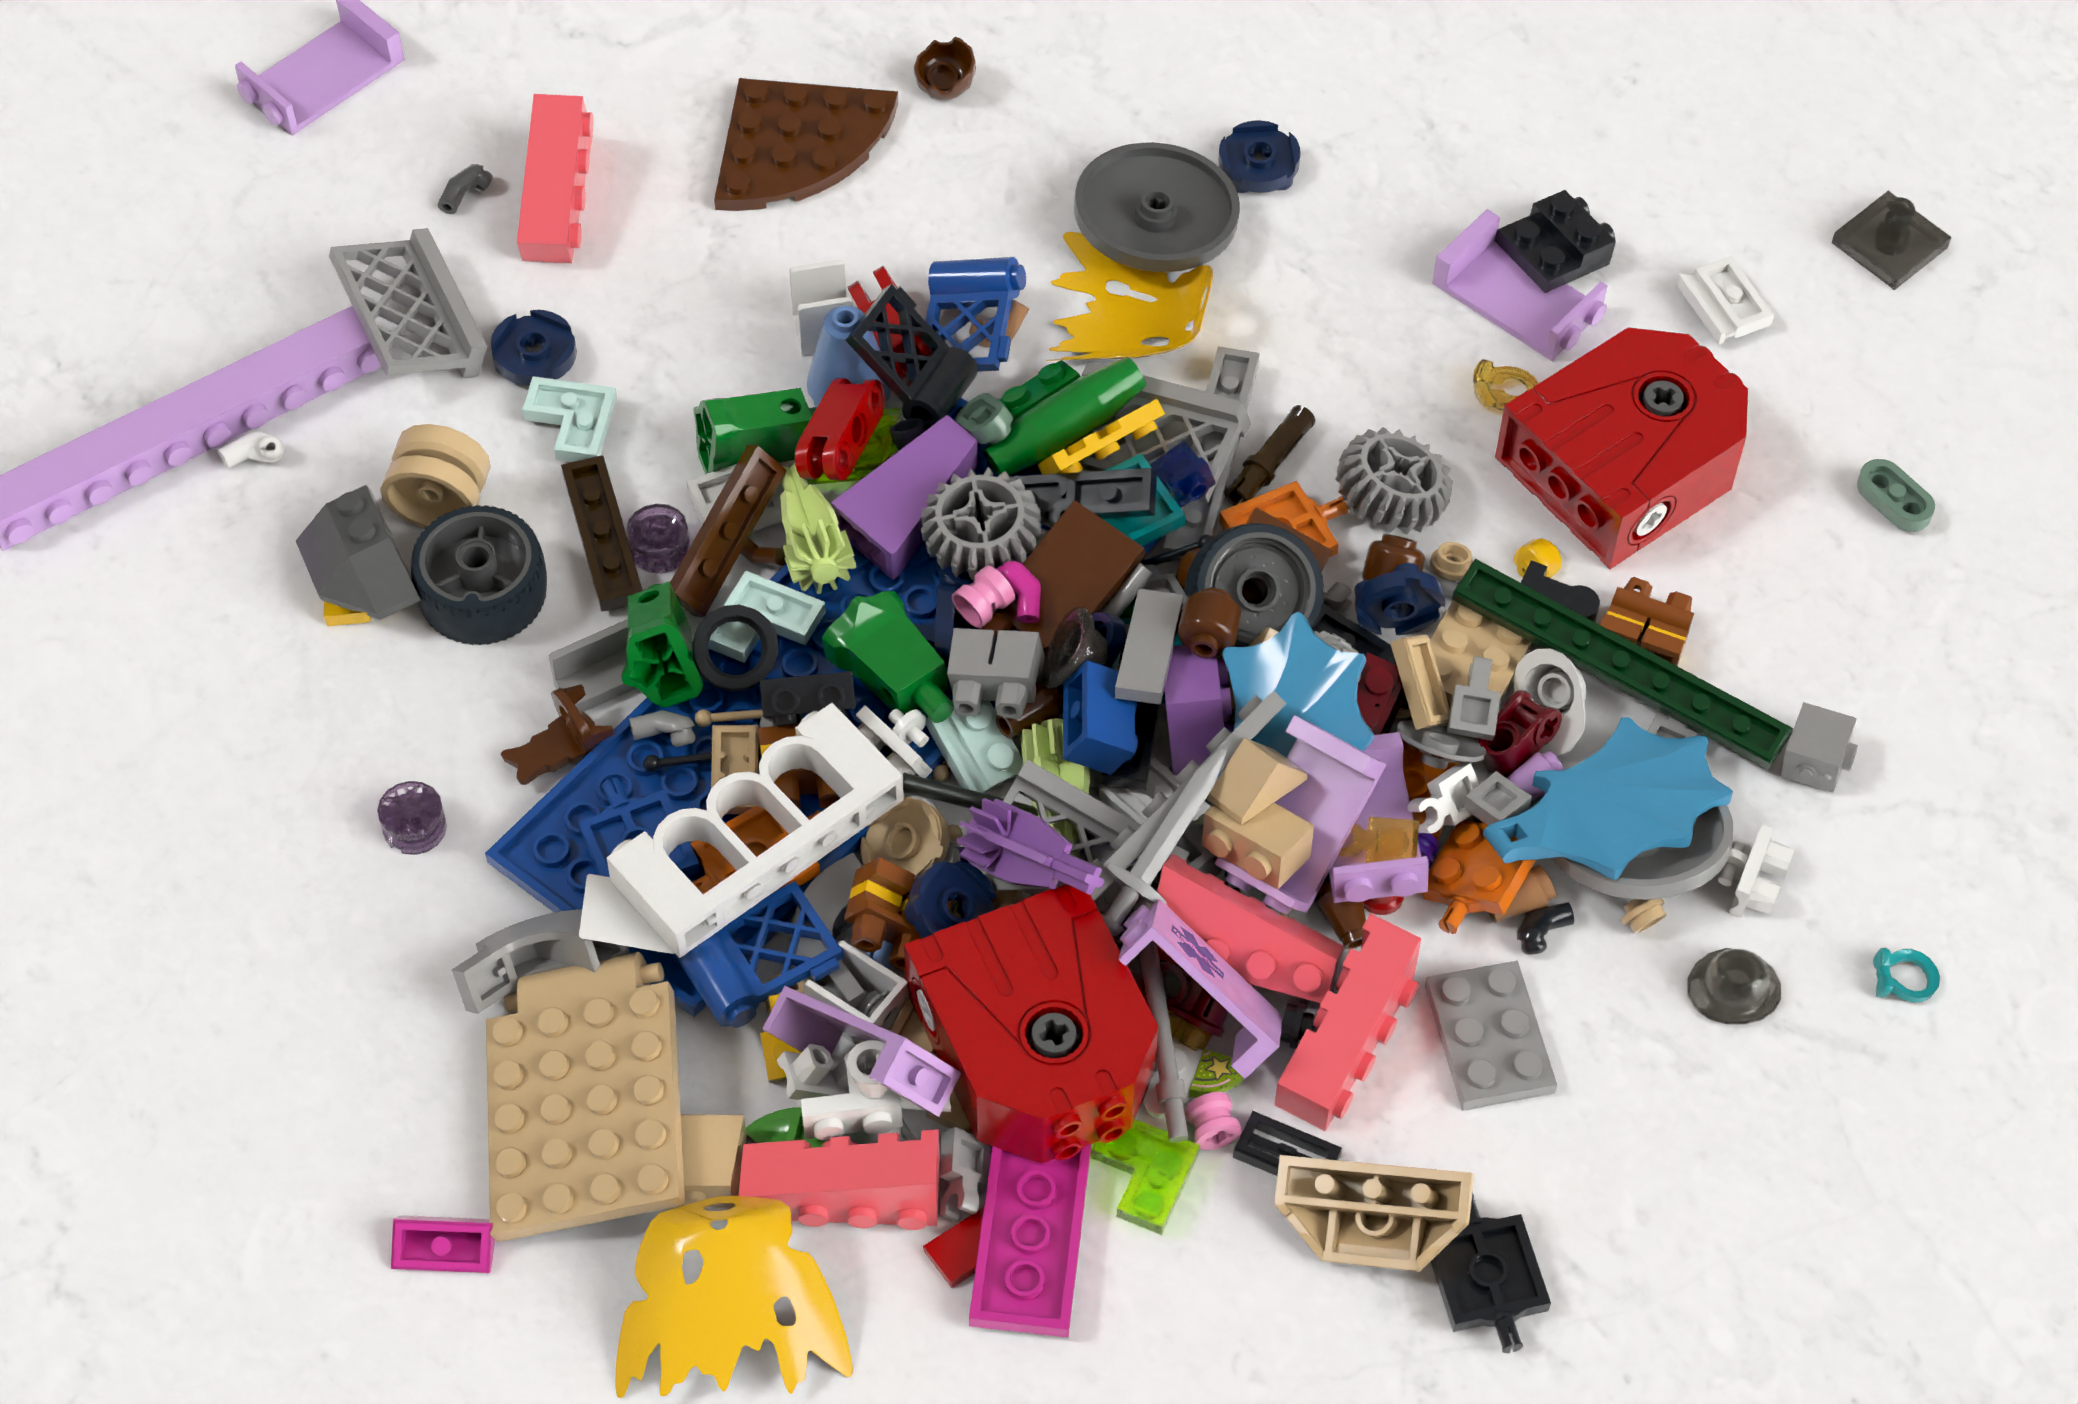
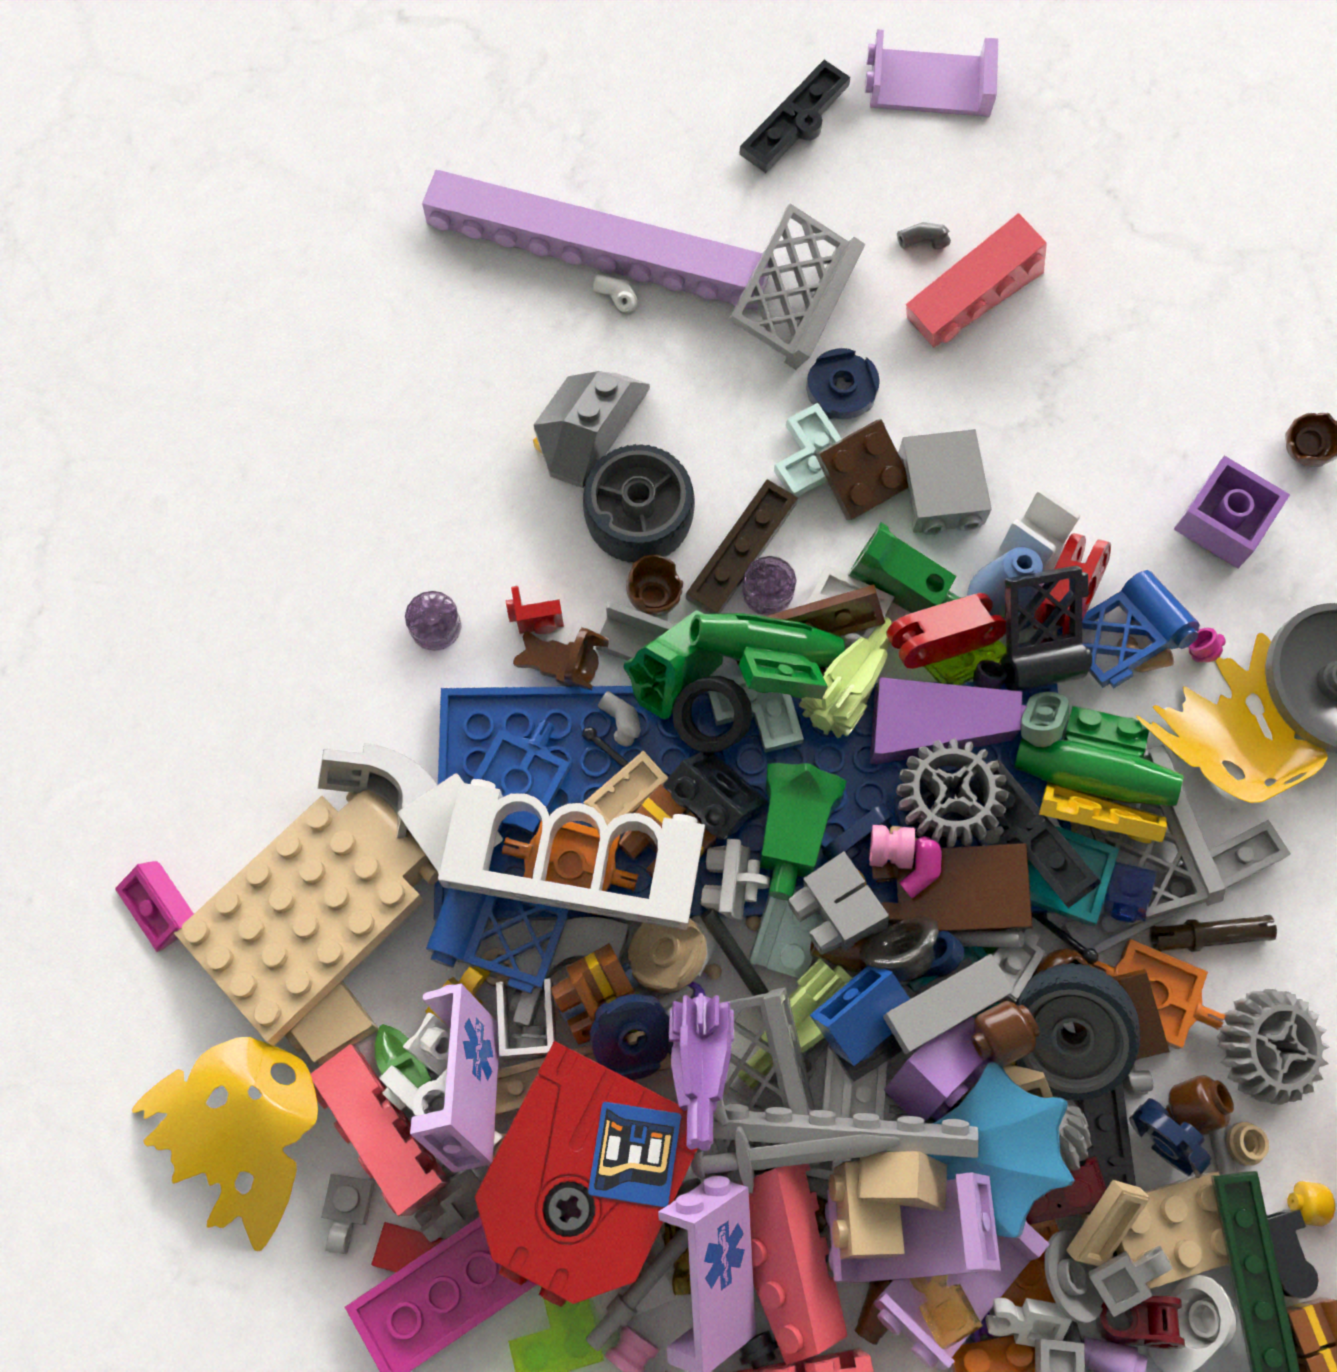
camera: 50 degrees right, 15 degrees up
(241, 191) = (795, 117): none -> black hinge
(434, 473) = (681, 414): tan wheel -> none
(498, 731) = (535, 617): none -> red bracket
(565, 618) = (654, 585): none -> reddish brown hair
(630, 389) = (863, 469): none -> reddish brown plate
(704, 718) = (653, 737): tan hinge -> none
(705, 339) = (945, 481): none -> light grey panel
(730, 551) = (771, 651): none -> green plate
(797, 140) = (1165, 397): reddish brown plate -> none
(883, 1266) = (346, 1203): none -> light grey plate
(945, 169) = (1232, 512): none -> medium lavender brick
(1039, 276) = (1207, 646): none -> dark pink plate
(1055, 951) = (634, 1154): none -> sticker
(1214, 1074) = (672, 1318): lime tile -> none

